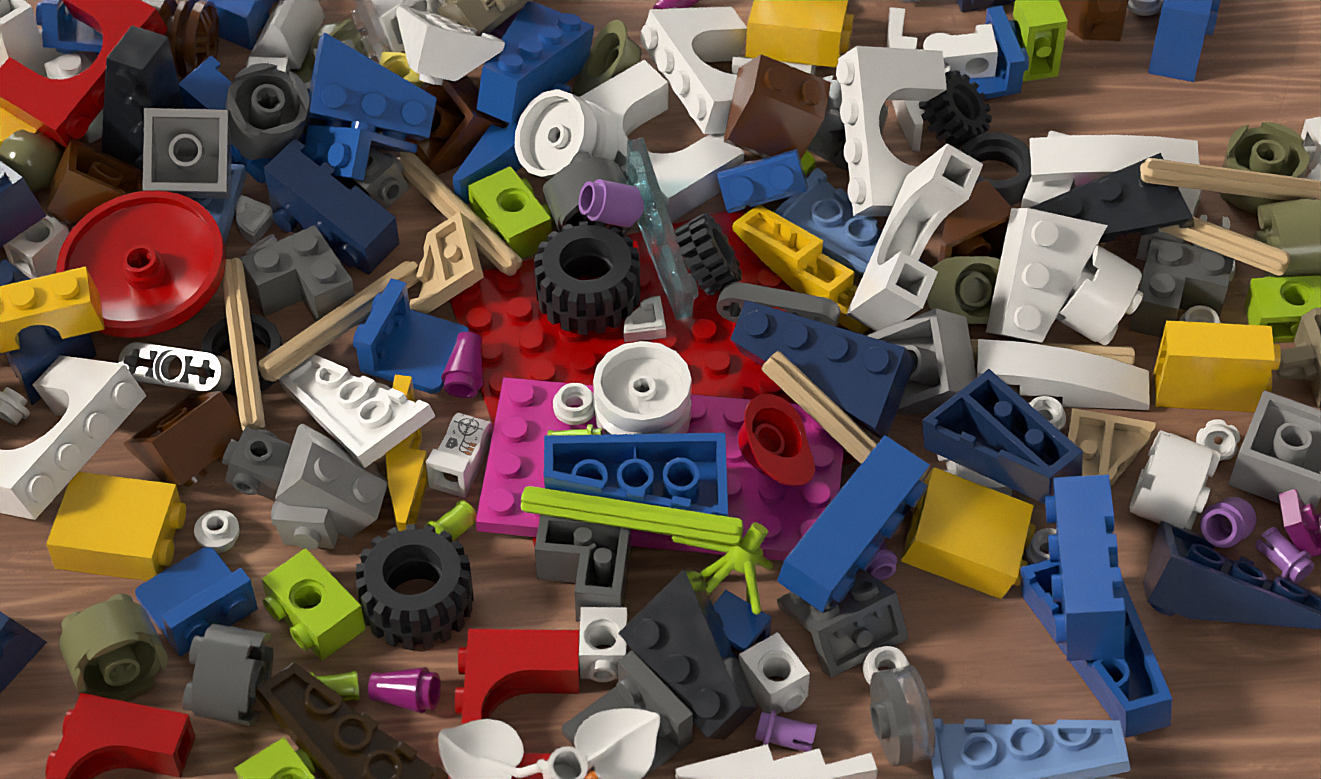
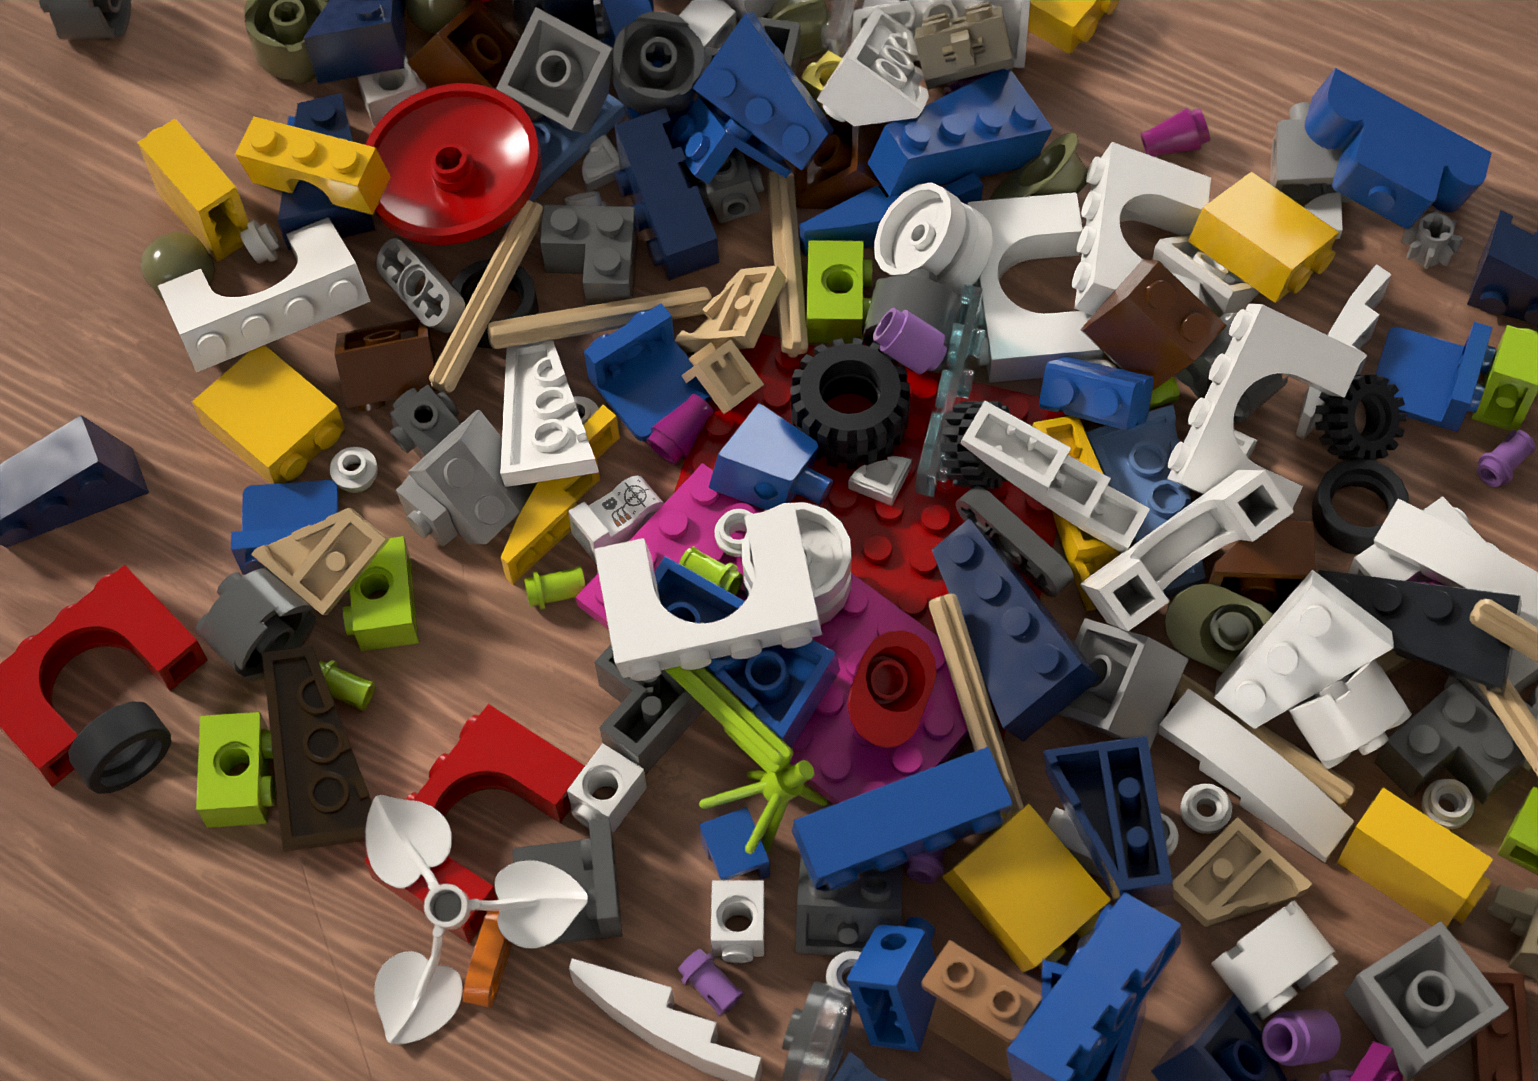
camera: 35 degrees right, 10 degrees up
(112, 649) = (178, 538): olive brick -> none
(257, 590) = (324, 557): none -> tan wing
(407, 557) = (471, 596): black tyre -> none
(409, 689) = (409, 730): magenta cone -> none
(472, 307) = (723, 374): none -> tan bracket
(560, 347) = (769, 463): none -> blue torso
(581, 491) = (775, 613): none -> white arch
(688, 651) = (662, 858): black wedge -> none
(777, 244) = (1054, 478): none -> white slope
(918, 631) = (889, 984): none -> blue torso
(967, 53) = (1414, 358): white leg -> none
(1005, 624) = (977, 1006): none -> medium nougat panel
(1065, 98) = (1498, 466): none -> medium lavender pin
(1228, 433) = (1355, 946): white plate -> none

